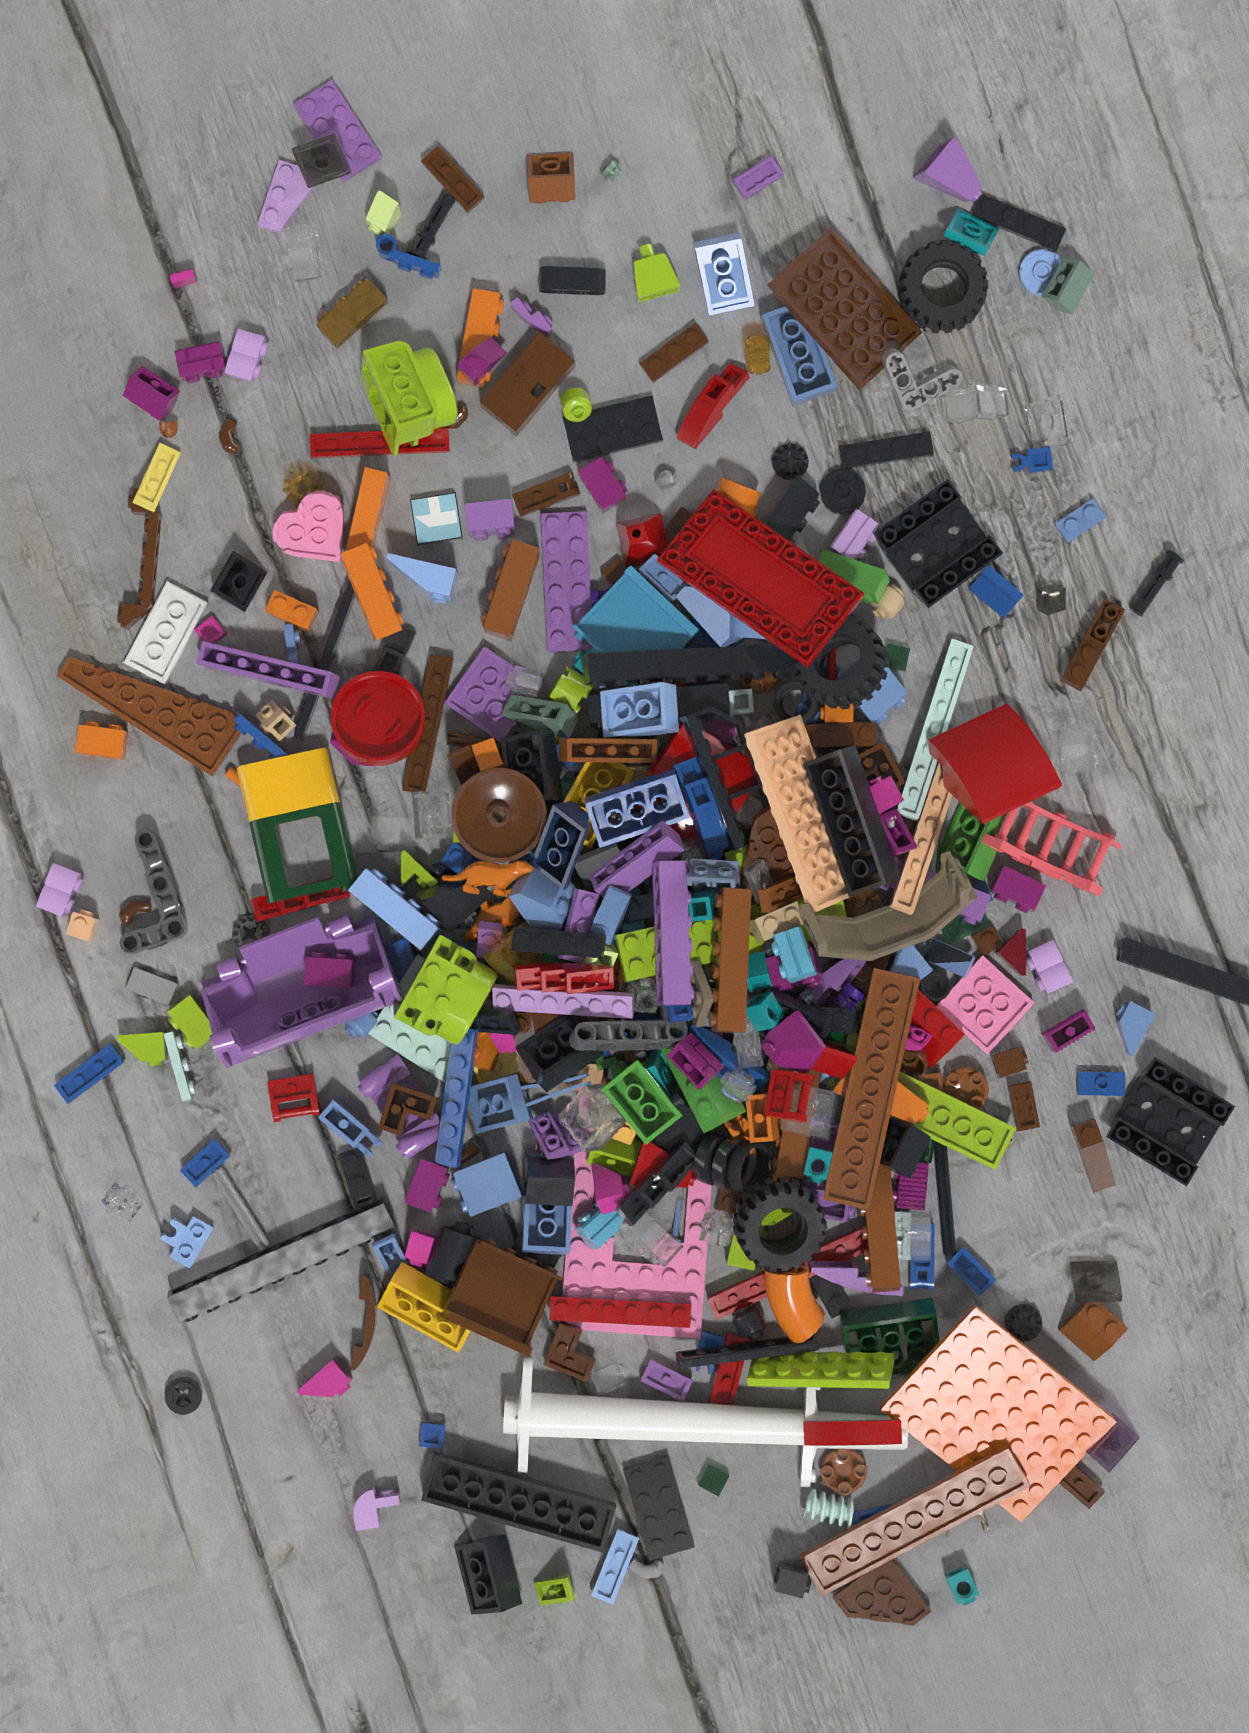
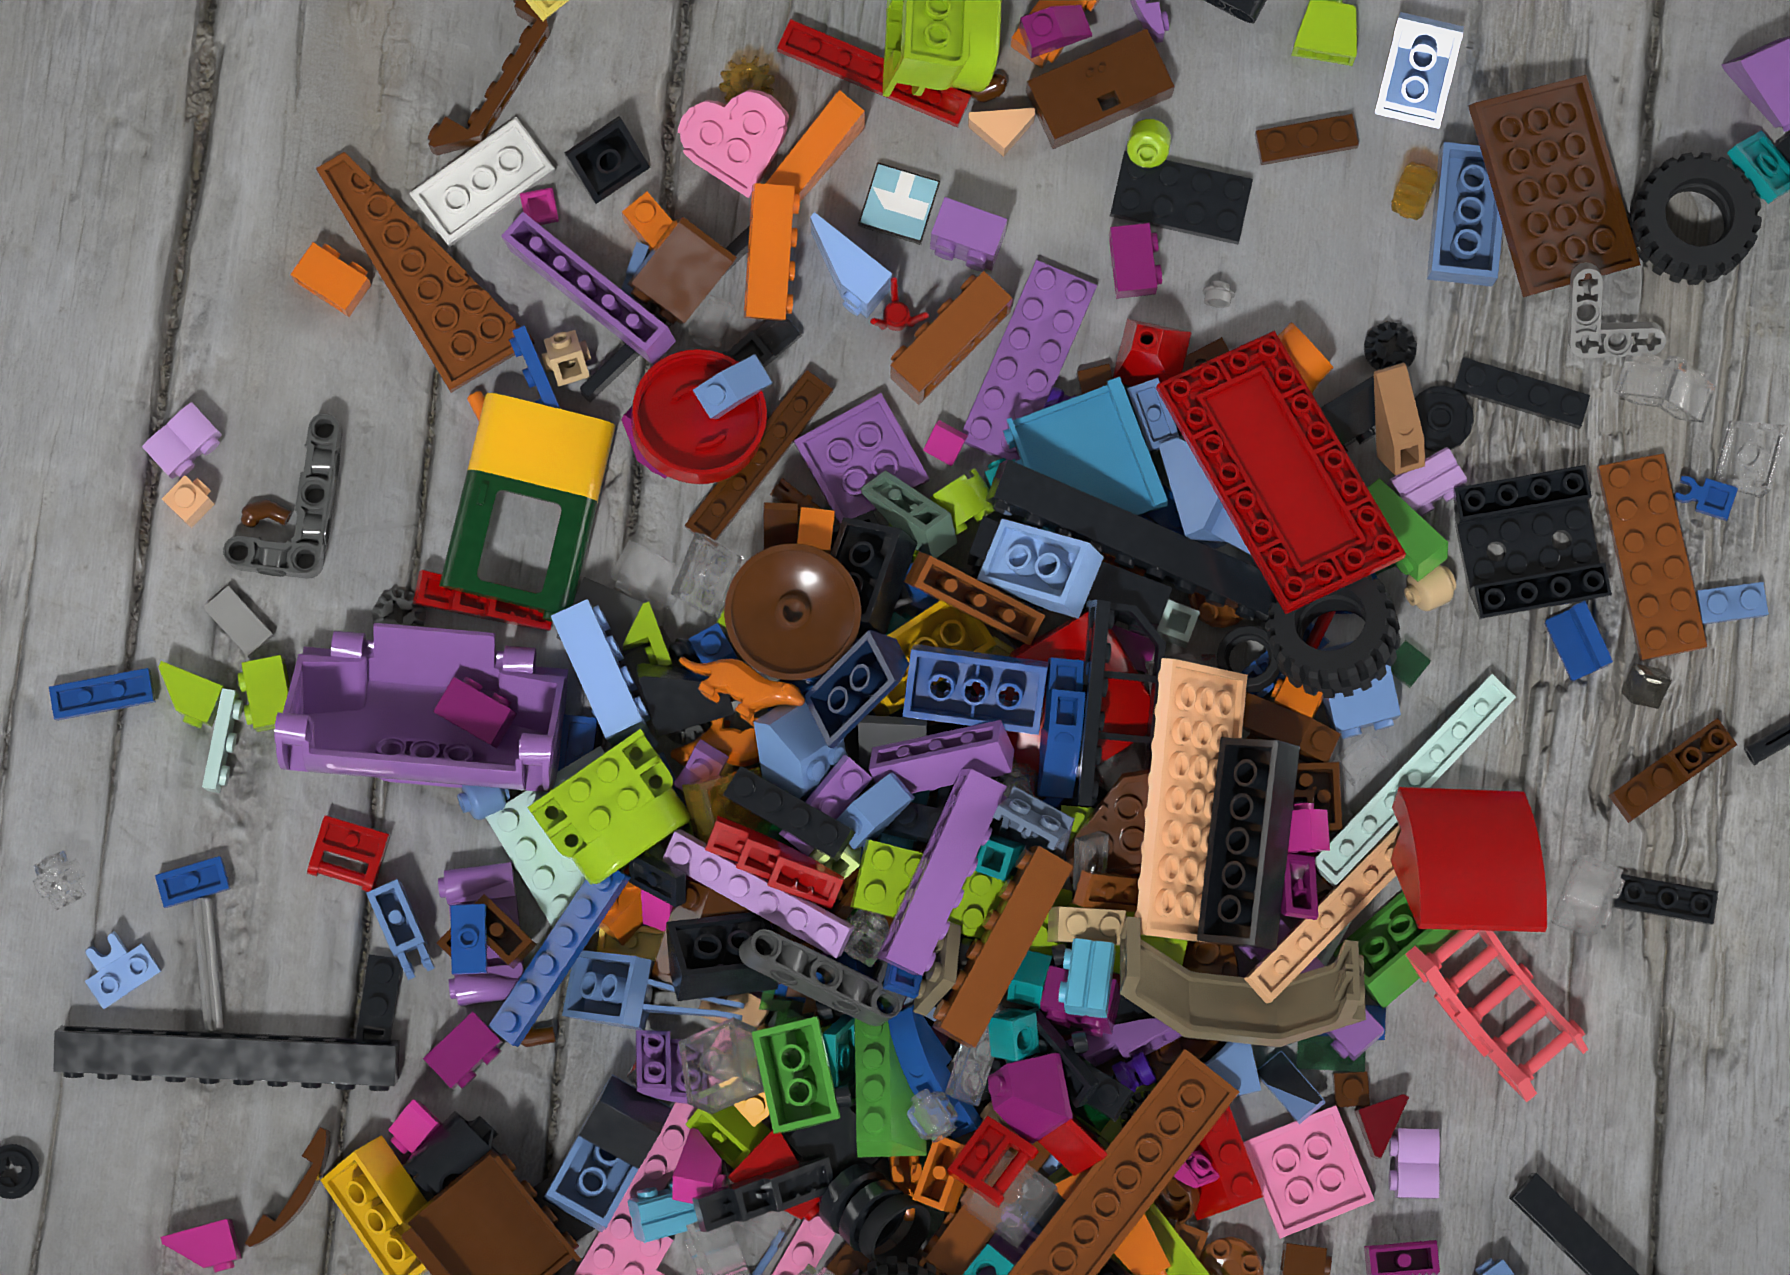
camera: 20 degrees right, 5 degrees down
(321, 632) = (680, 271): none -> reddish brown slope
(390, 689) = (732, 387): none -> medium blue slope
(390, 1253) = (372, 1116): medium blue slope -> none
(397, 1116) = (468, 939): none -> blue plate
(469, 590) = (896, 314): none -> red plant
(477, 439) = (1001, 127): none -> light nougat slope
(487, 1184) = (542, 1088): medium blue slope -> none
(525, 682) = (911, 460): clear brick -> none
(540, 658) = (945, 443): none -> dark pink tile
(545, 494) = (1054, 239): reddish brown plate -> none
(695, 1061) = (891, 1055): magenta brick -> none
(709, 405) = (1319, 225): red slope -> none
(817, 508) = (1397, 421): none -> medium nougat slope
(944, 984) = (1267, 1119): black piece -> none
(1016, 515) = (1651, 557): none -> dark orange plate
(1017, 889) = (1423, 1041): magenta brick -> none
(1139, 723) = (1686, 902): none -> black tile

